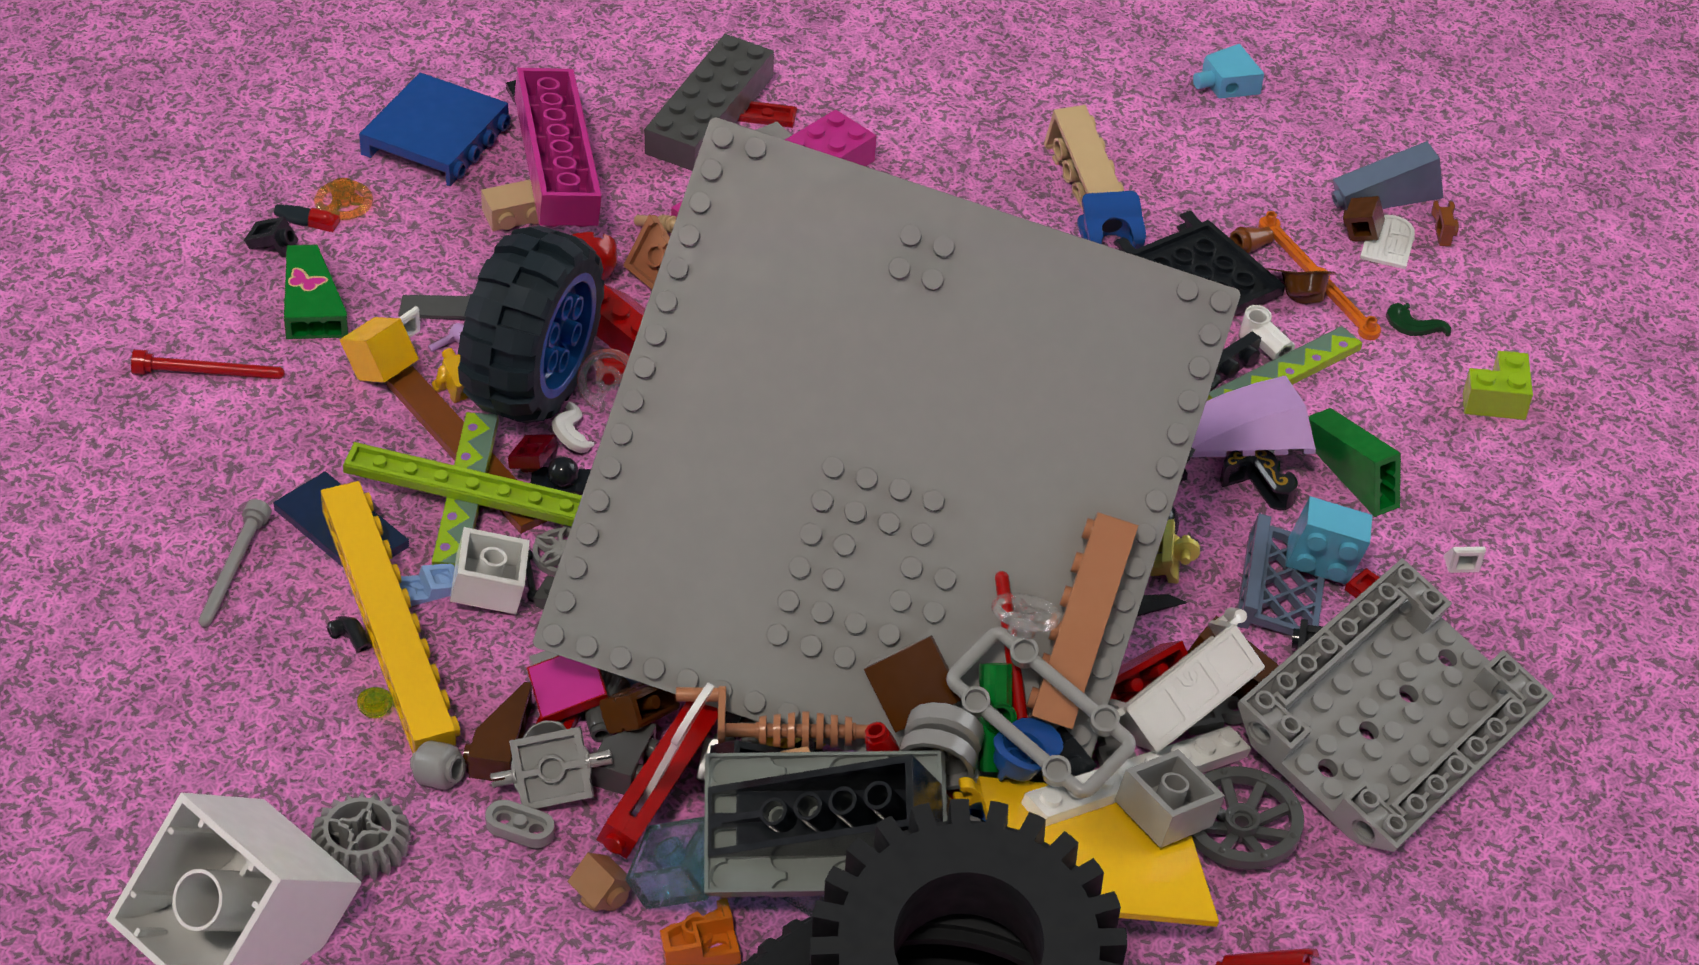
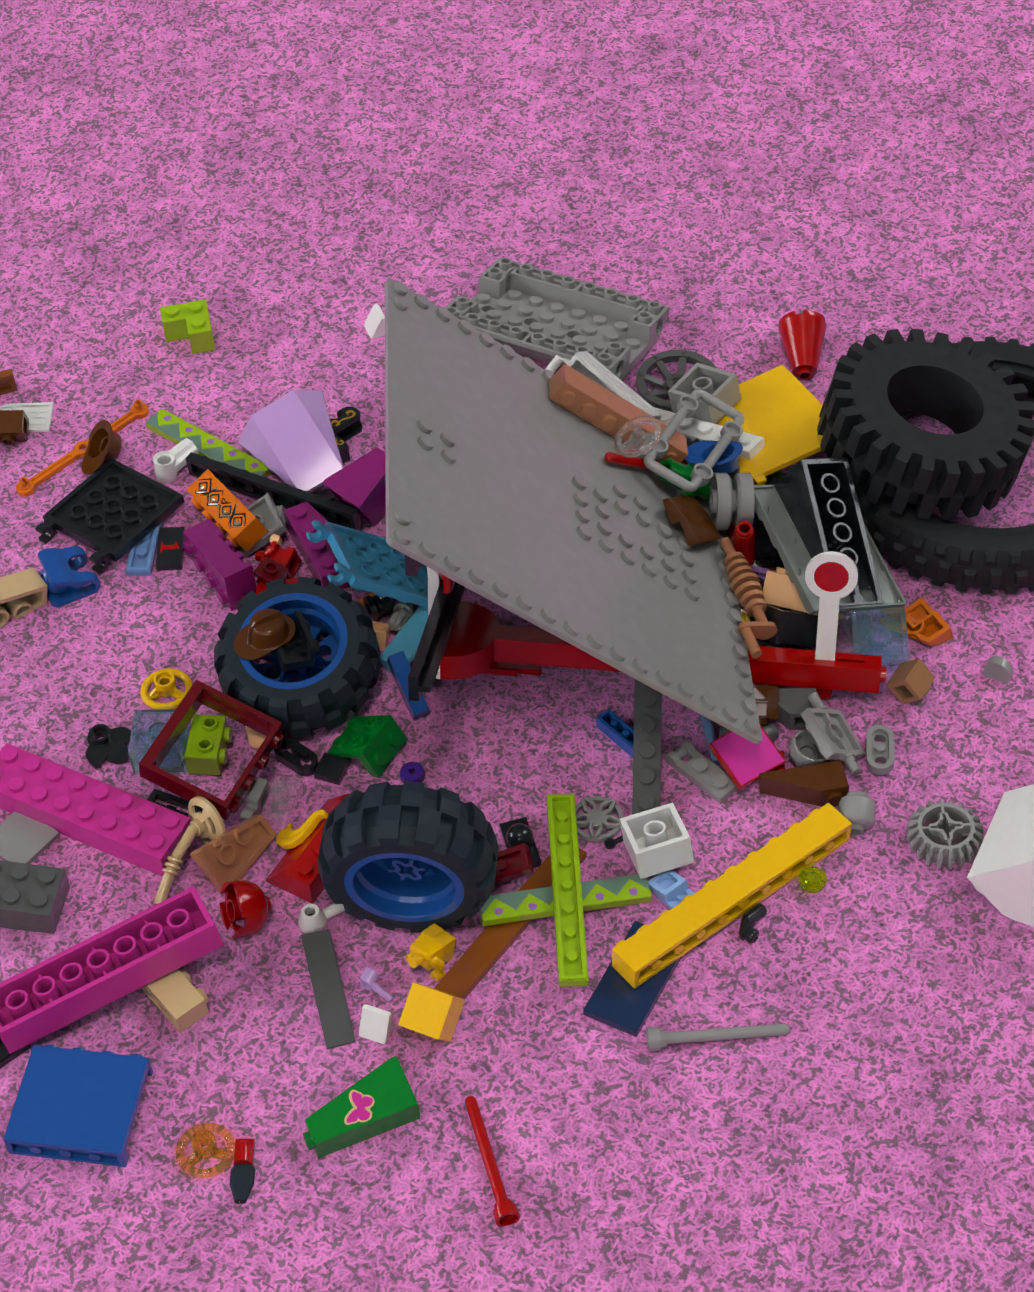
camera: 100 degrees left, 5 degrees up
(270, 233) = (288, 1182): black bracket -> none
(1252, 237) = (52, 490): dark orange cone -> none
(1359, 460) = (313, 371): green slope -> none
(1401, 319) = (123, 393): dark green piece -> none

